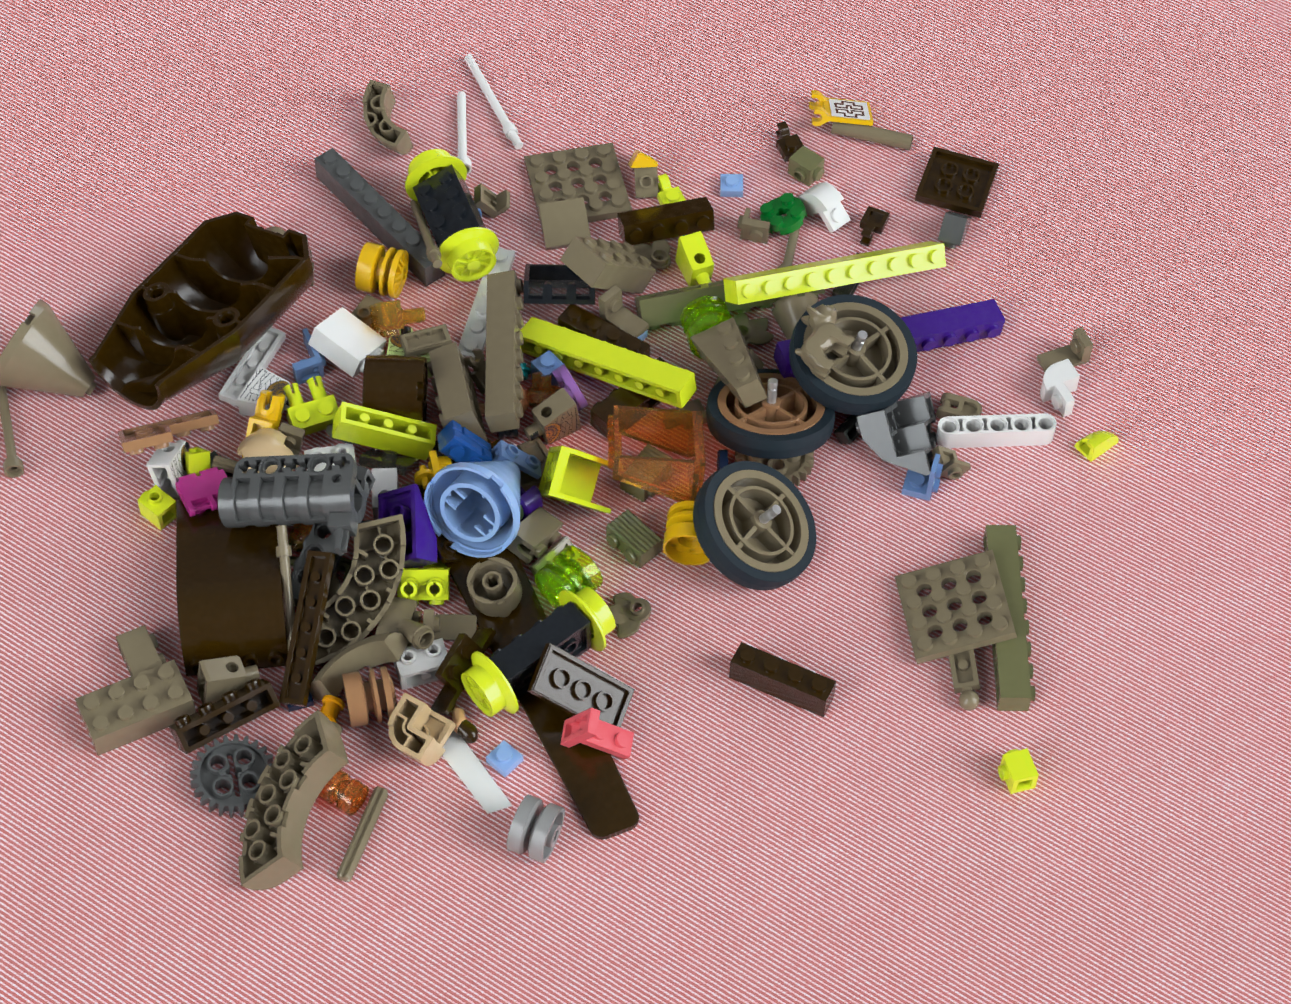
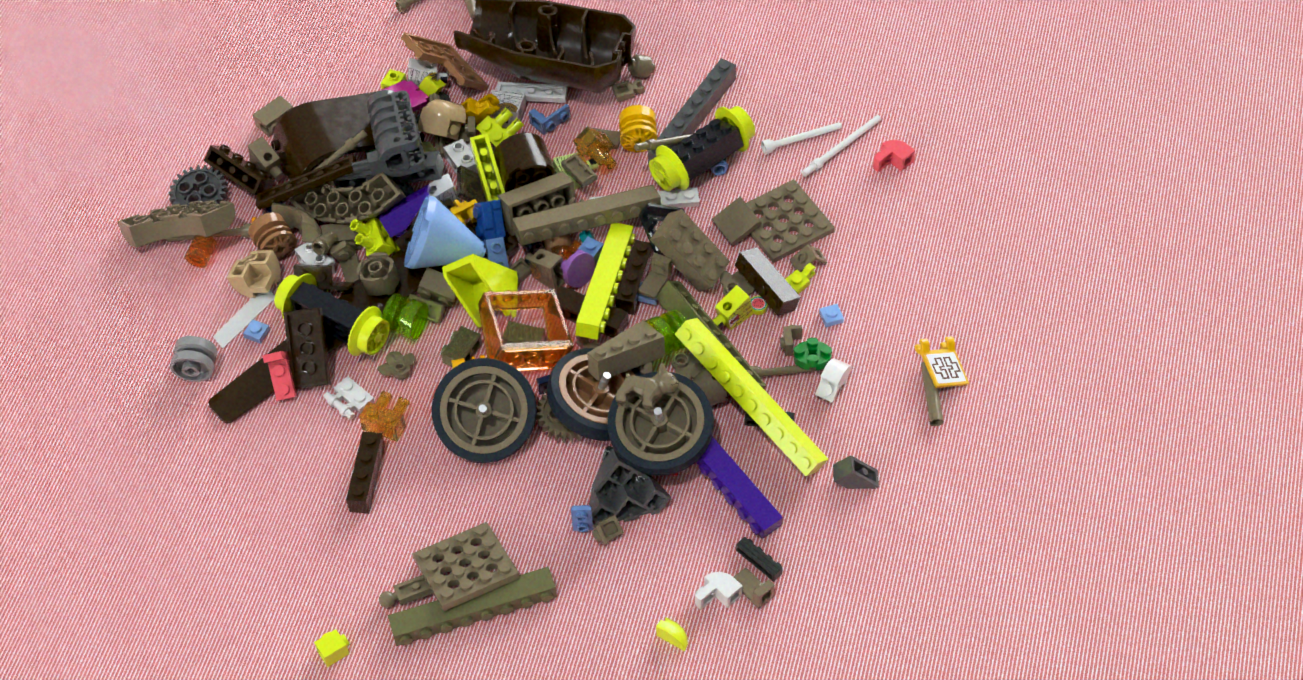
camera: 75 degrees right, 0 degrees up
(135, 707) = (233, 124): dark tan brick -> none
(346, 341) = (563, 129): white brick -> none
(362, 834) = (176, 273): dark tan axle -> none
(377, 110) = (784, 86): dark tan brick -> none
(464, 727) = (269, 304): dark brown arm -> none
(490, 202) = (737, 171): dark tan bracket -> none
(534, 57) = (894, 153): none -> coral brick
(641, 160) = (819, 248): yellow slope -> none
(654, 671) = (352, 394): none -> white plate
(712, 645) = (383, 420): none -> clear yellow brick
(787, 144) = (891, 341): dark brown plate -> none
(806, 166) = (871, 356): olive brick -> none
(872, 222) = (834, 417): dark brown plate -> none
(957, 182) = (908, 465): dark brown plate -> none
(965, 406) = (667, 531): dark tan plate -> none
(995, 430) = (656, 563): white beam -> none
(1029, 341) = (759, 559): none -> pearl dark grey piece

